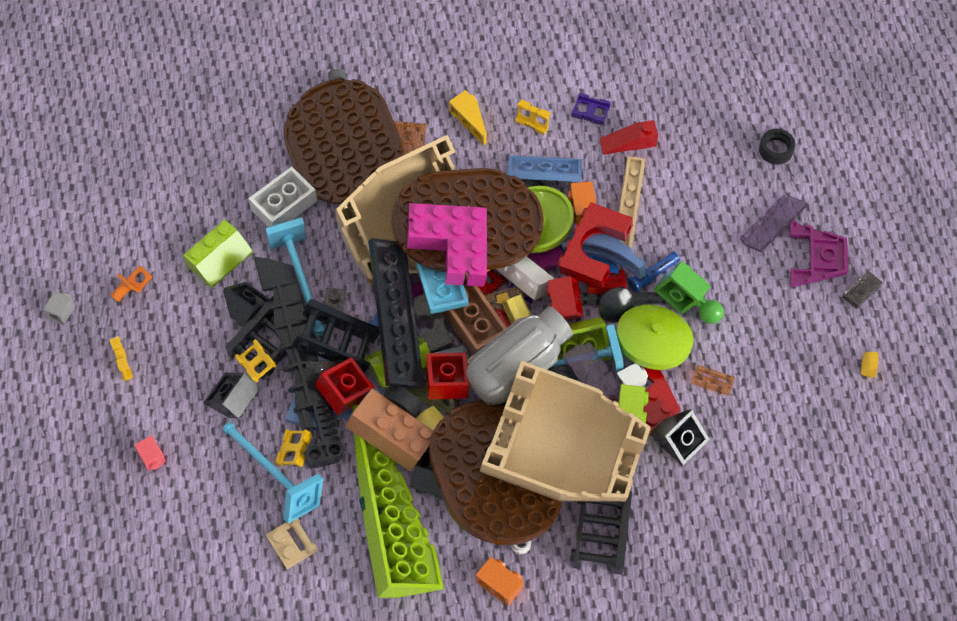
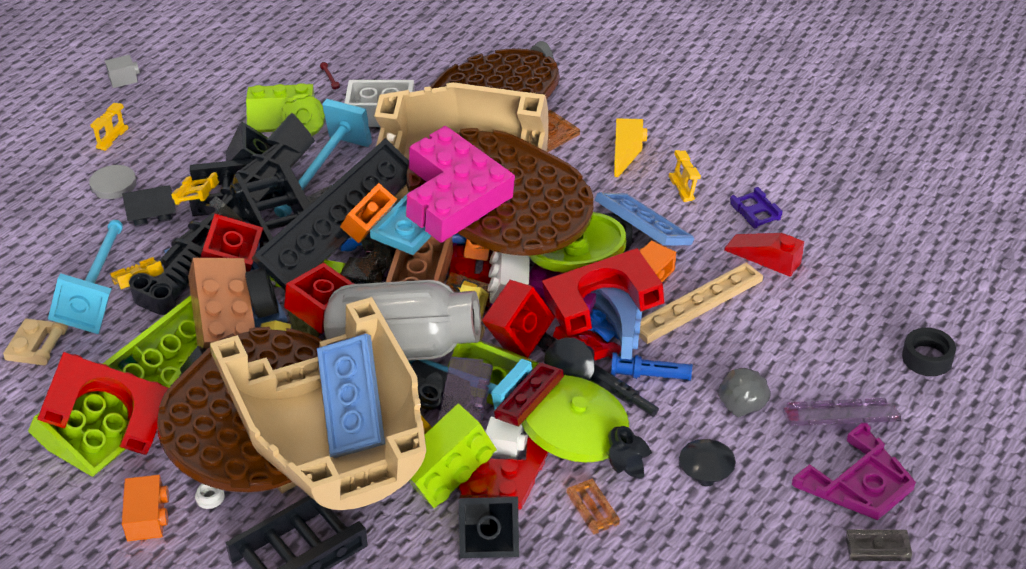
camera: 45 degrees right, 20 degrees down
(130, 283) = (187, 86): orange bracket -> none
(150, 453) = (34, 200): coral brick -> none
(177, 397) = (112, 181): none -> light grey tile
(221, 204) = (324, 66): none -> dark red hinge
(243, 248) = (307, 110): none -> lime tile
(420, 299) = (368, 213): none -> orange brick
(422, 524) = (79, 376): none -> red arch
(556, 426) = (350, 396): none -> medium blue tile
(629, 344) = (528, 394): none -> dark red tile
(684, 282) = (654, 399): bright green brick -> none
(698, 332) = (627, 451): none -> black plate
(716, 248) = (744, 391): none -> dark grey hair
(739, 306) = (707, 461): none -> black dish

